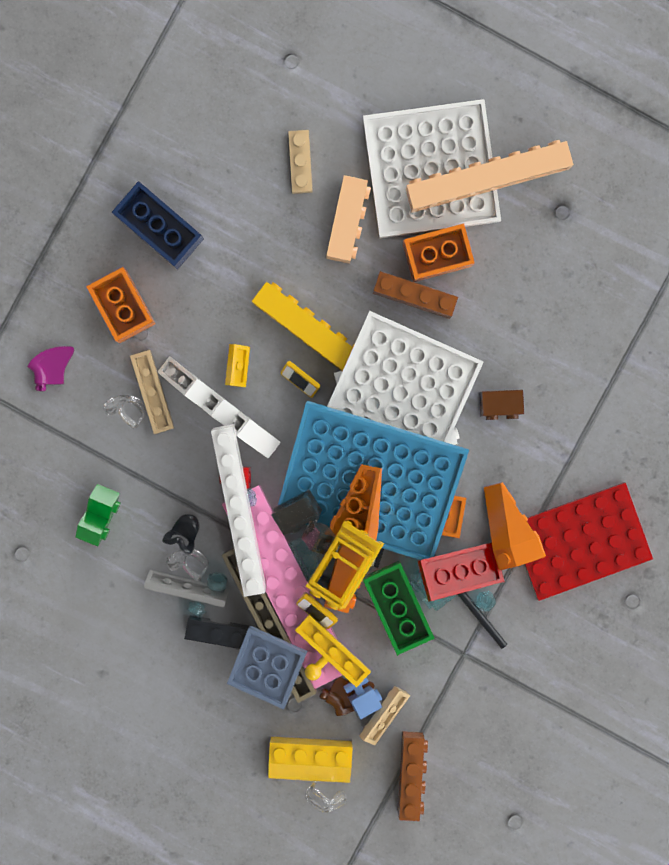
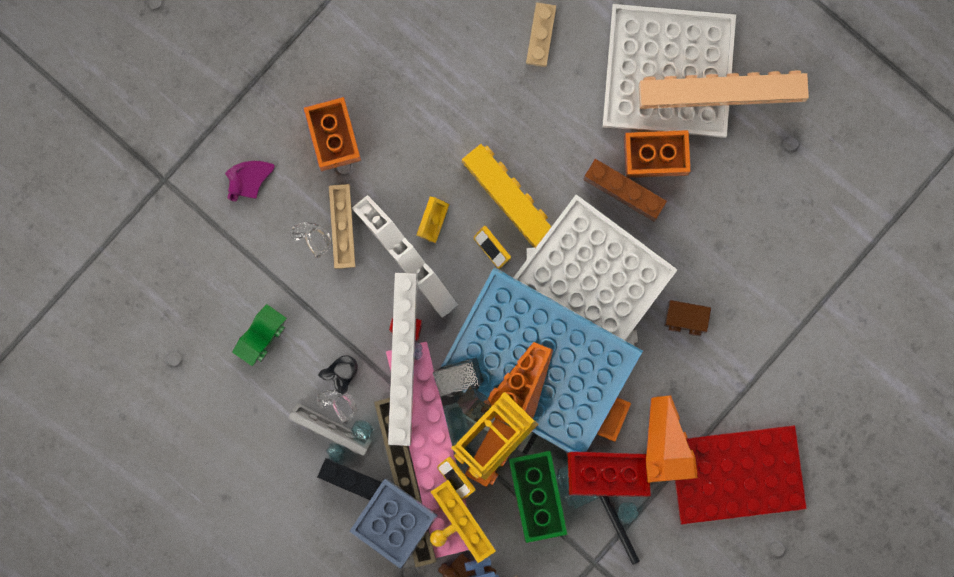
camera: 10 degrees right, 5 degrees down
(157, 225) = (387, 65): dark blue brick -> none
(347, 219) = (574, 101): light nougat brick -> none

